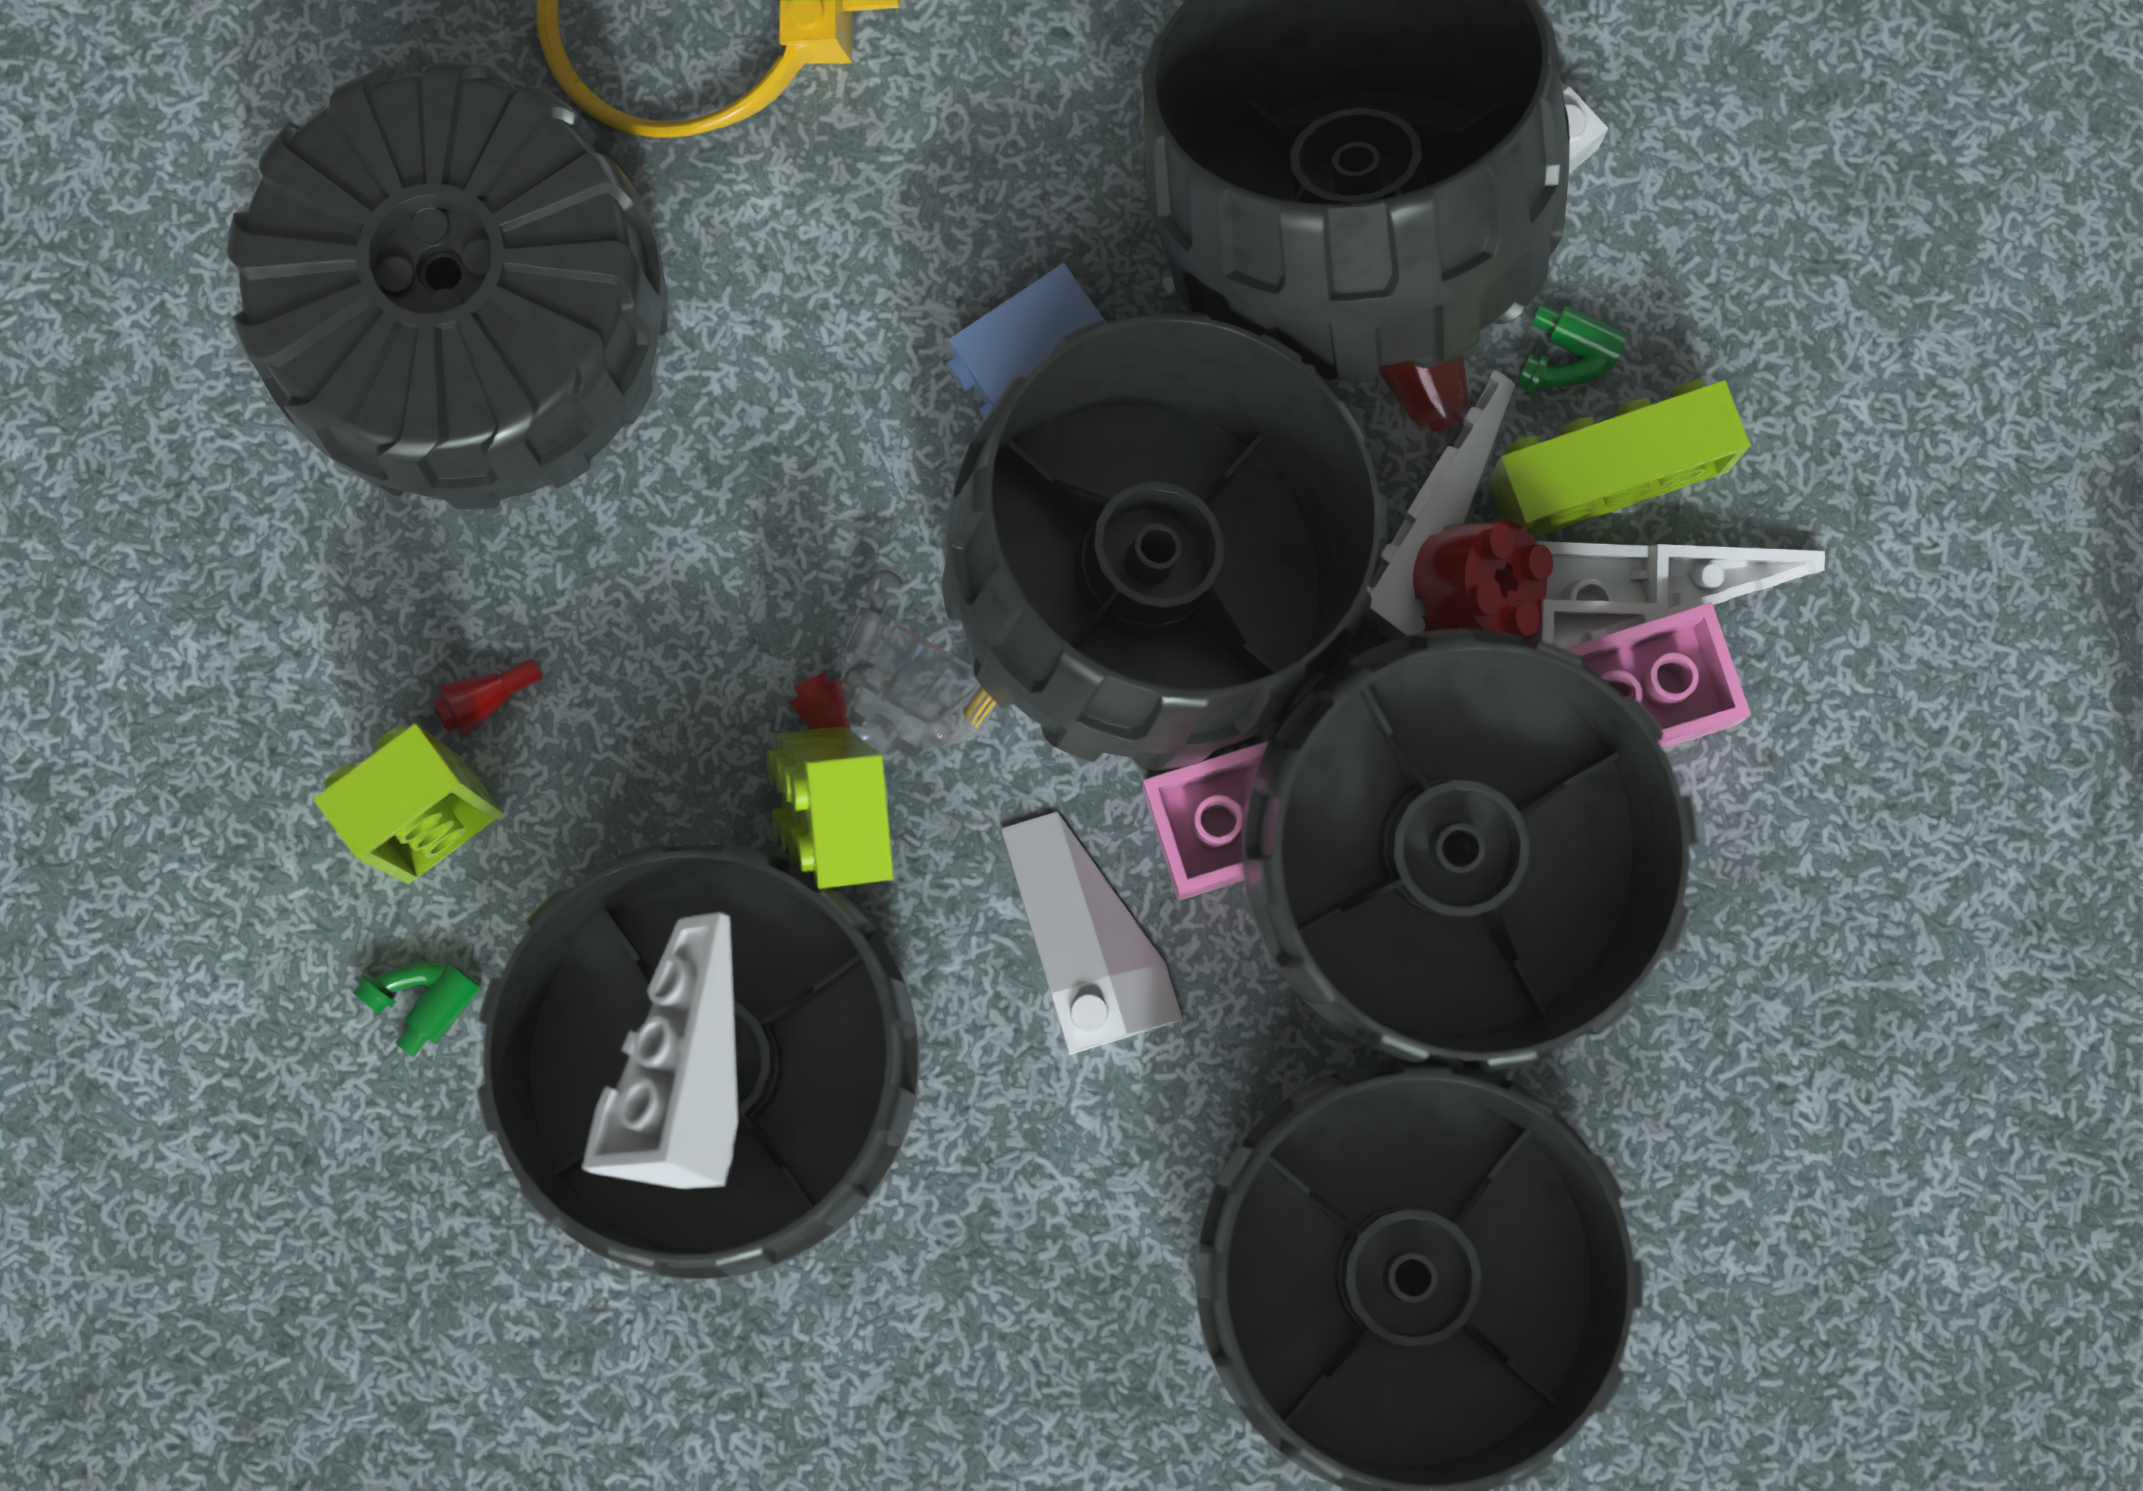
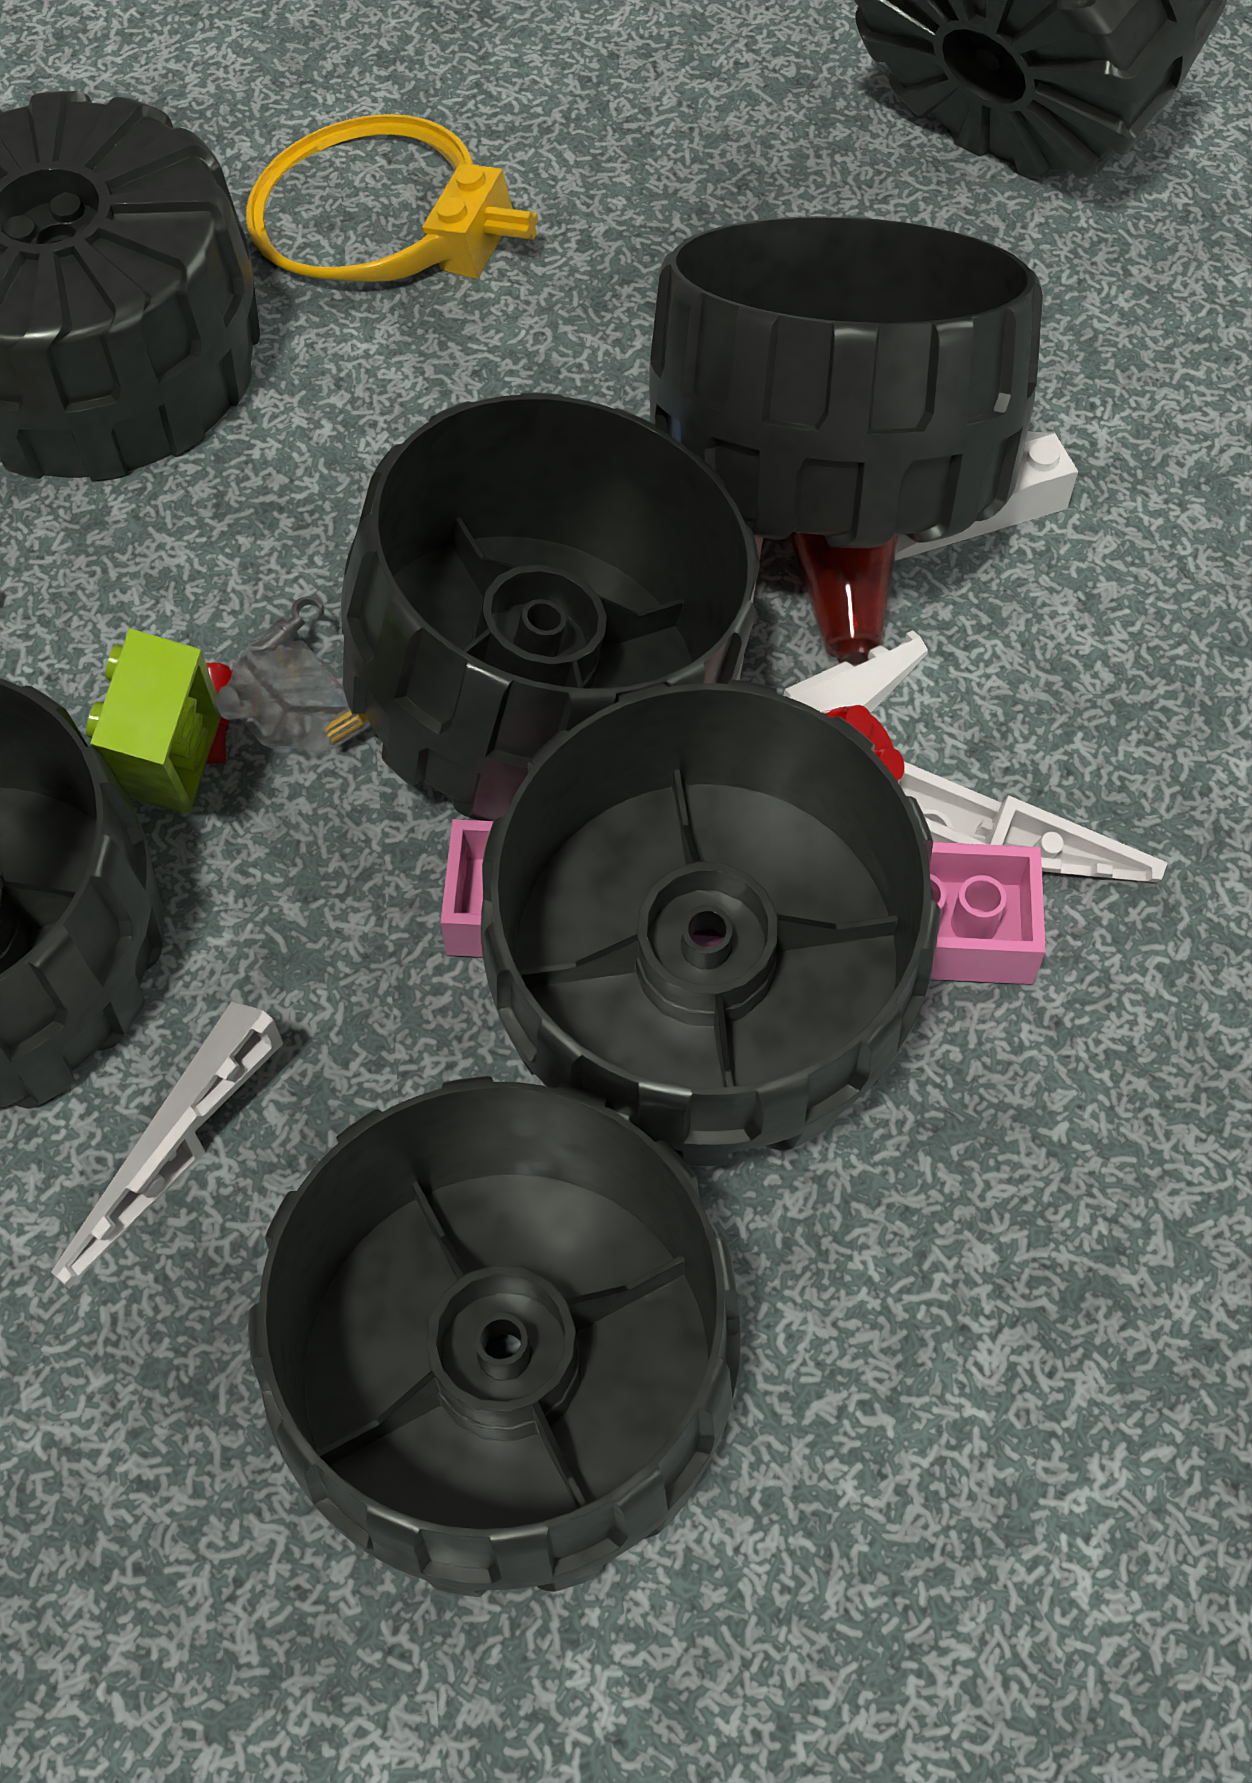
camera: 20 degrees right, 20 degrees down
(1028, 1121) = (169, 1145): none -> white wedge
(1092, 951) = (344, 965): white wedge -> none
(1579, 334) = (1009, 637): green plant -> none
(1620, 459) = (1000, 715): lime brick -> none

